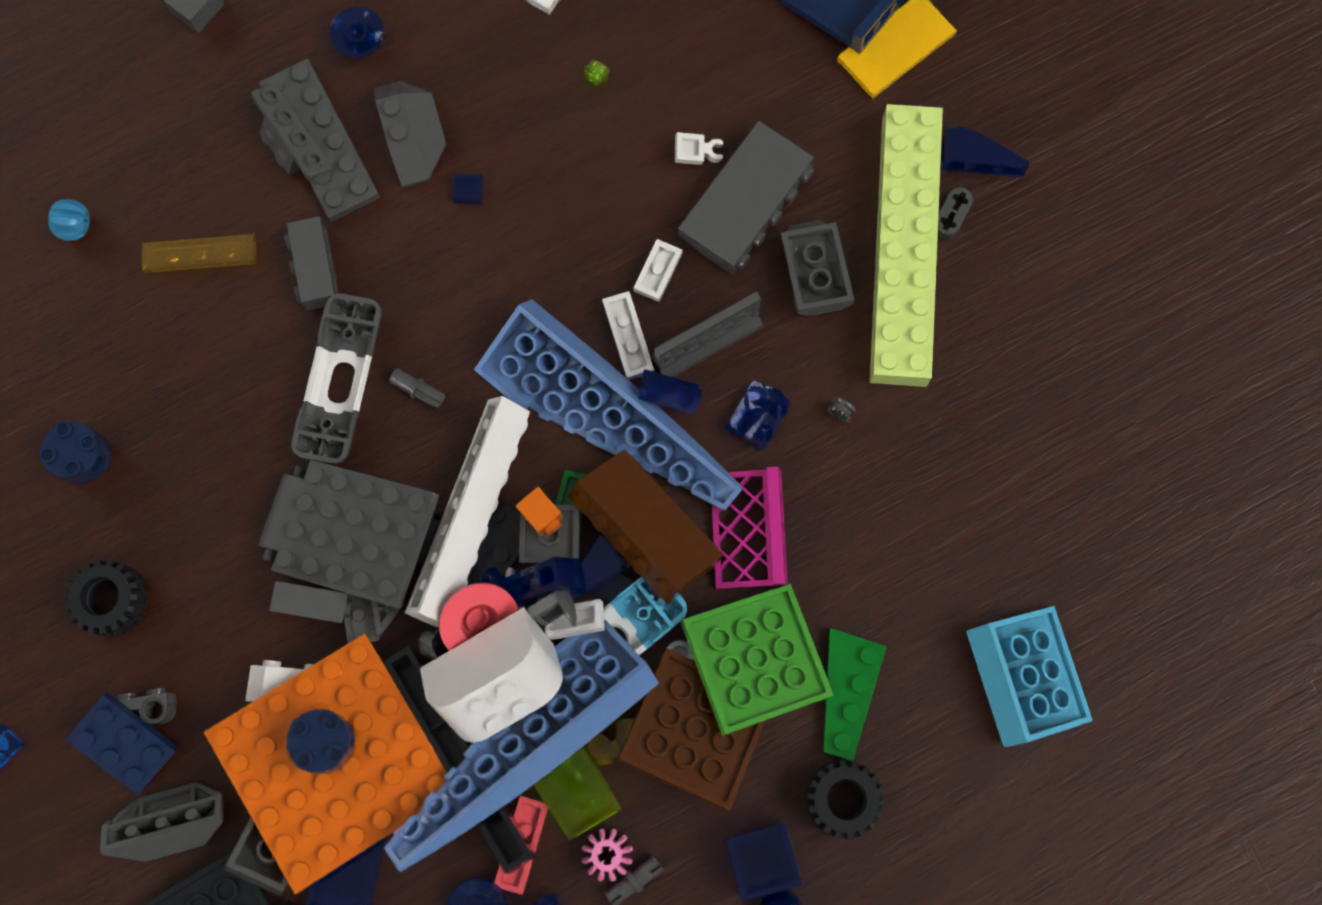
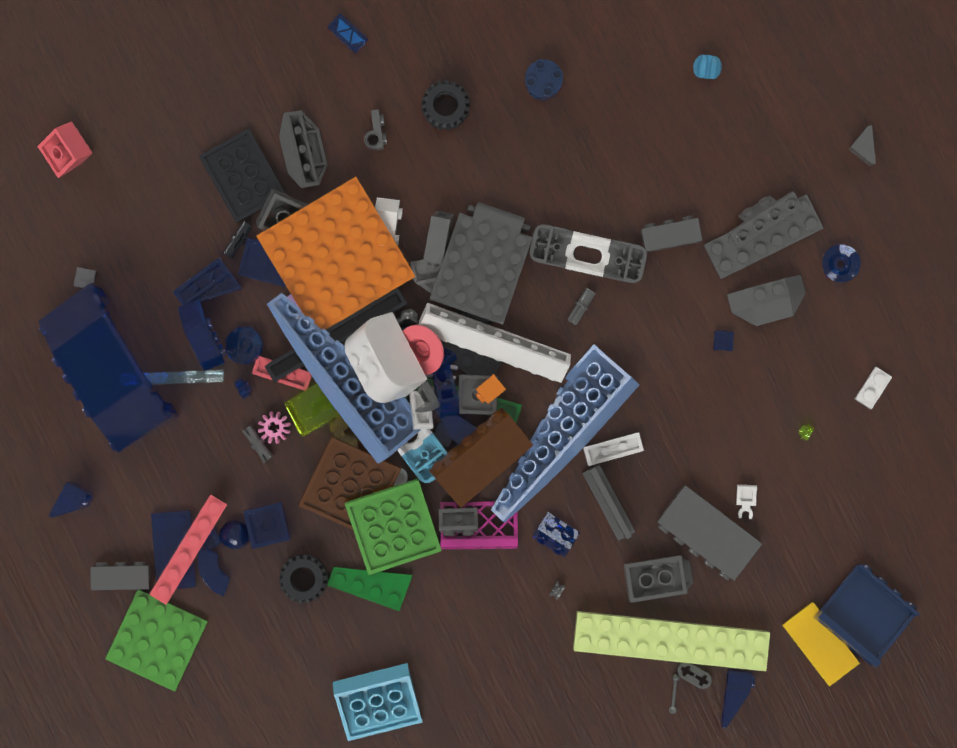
camera: 85 degrees right, 10 degrees up
(122, 743) = (352, 120): dark blue plate -> none
(198, 253) = (682, 155): clear yellow tile -> none
(320, 741) = (346, 252): dark blue brick -> none
(658, 270) = (658, 470): white plate -> none
(669, 392) = (571, 475): clear blue bracket -> none
(743, 557) = (458, 521): none -> dark grey bracket
(1004, 243) = (672, 709): none -> dark grey hinge

